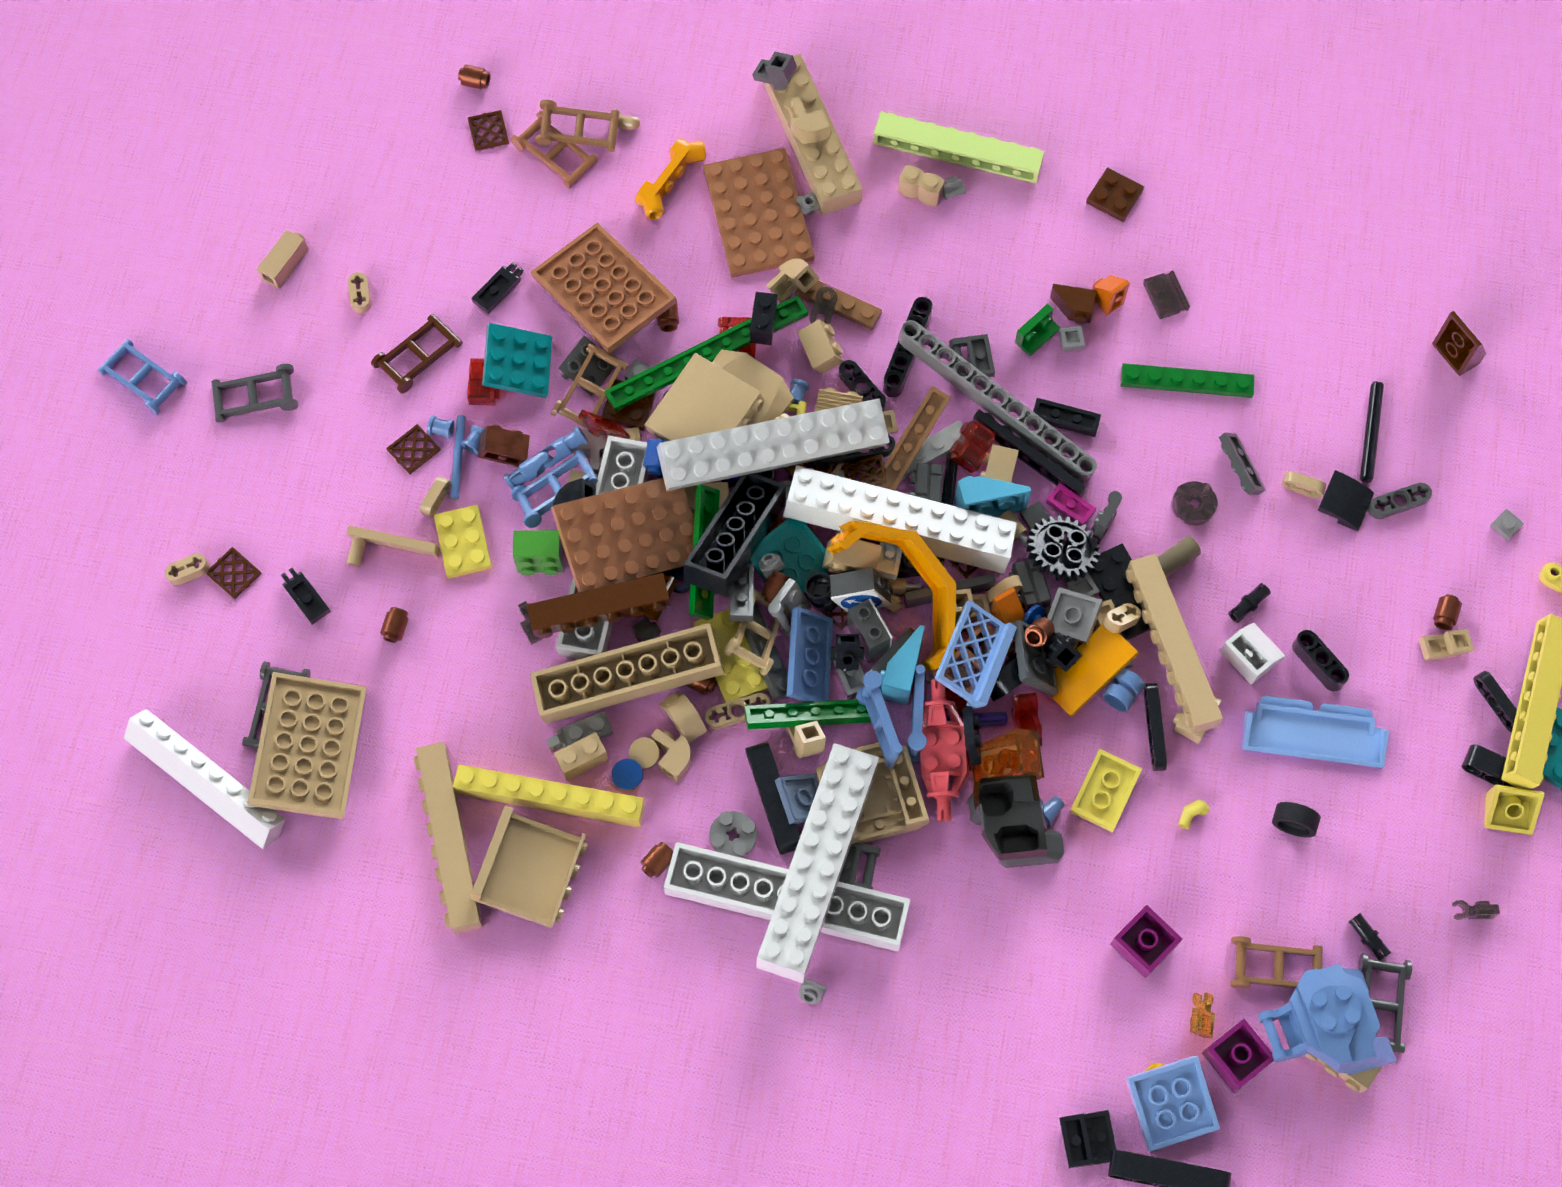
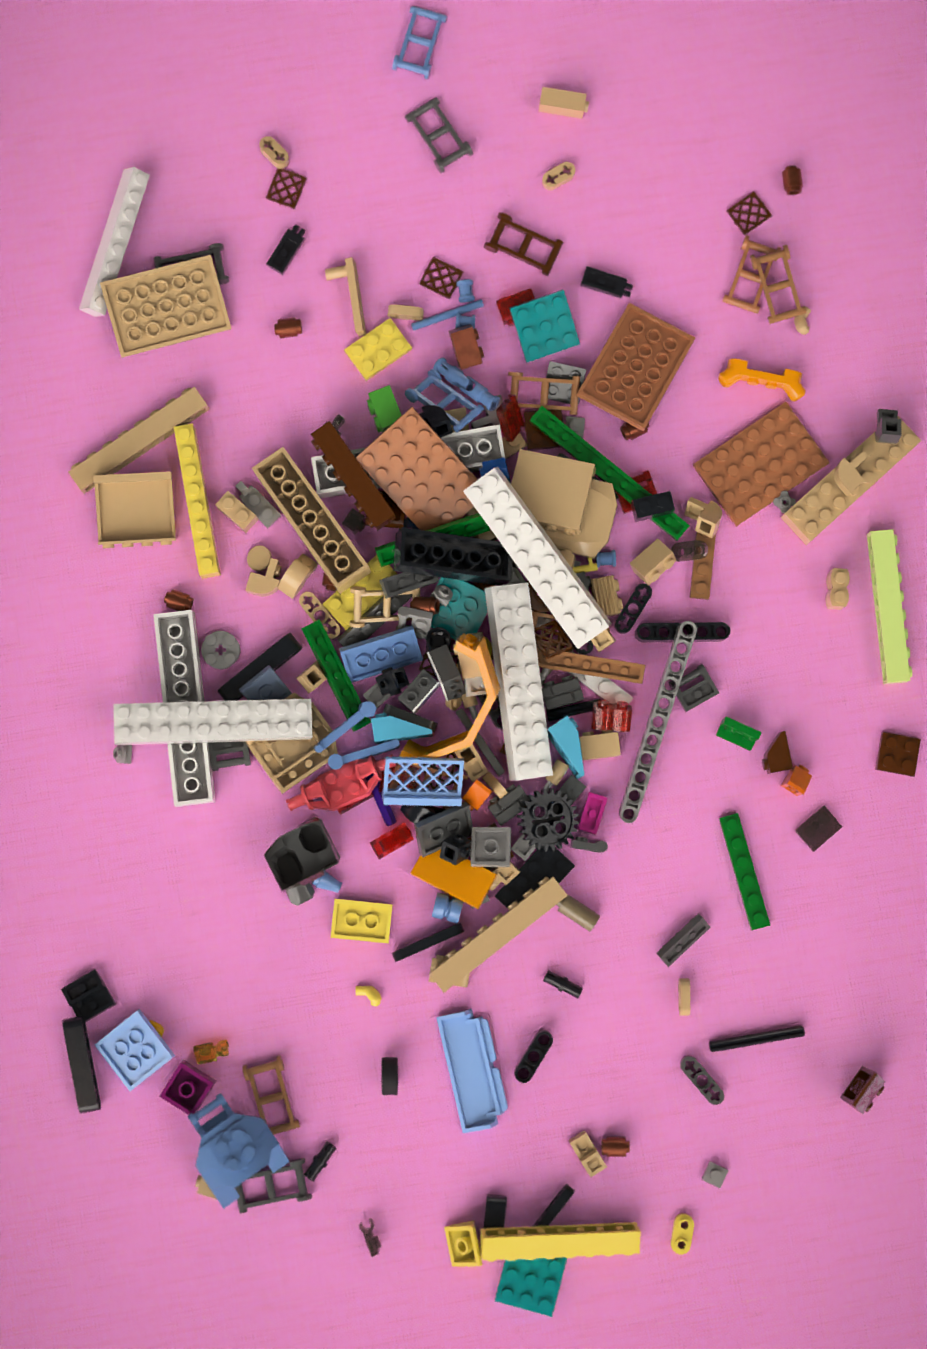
camera: 65 degrees right, 15 degrees up
(627, 774) = (237, 552): blue piece -> none
(953, 187) = (849, 616): light grey plate -> none
(972, 736) = (360, 802): black plate -> none
(1011, 755) = (351, 837): clear orange slope -> none
(1033, 613) = (481, 817): blue piece -> none
(1035, 459) = (621, 772): black plate -> none
(1039, 632) = (463, 825): copper brick -> none
(1067, 417) = (669, 783): black plate -> none
(1071, 338) = (744, 763): light grey plate -> none
(1122, 618) = (505, 883): tan beam -> none
(1146, 941) = (249, 990): magenta brick -> none
(1199, 491) = (644, 918): clear smoke plate -> none
(1251, 653) = (519, 1000): white slope -> none
(1346, 500) = (684, 1035): black slope -> none

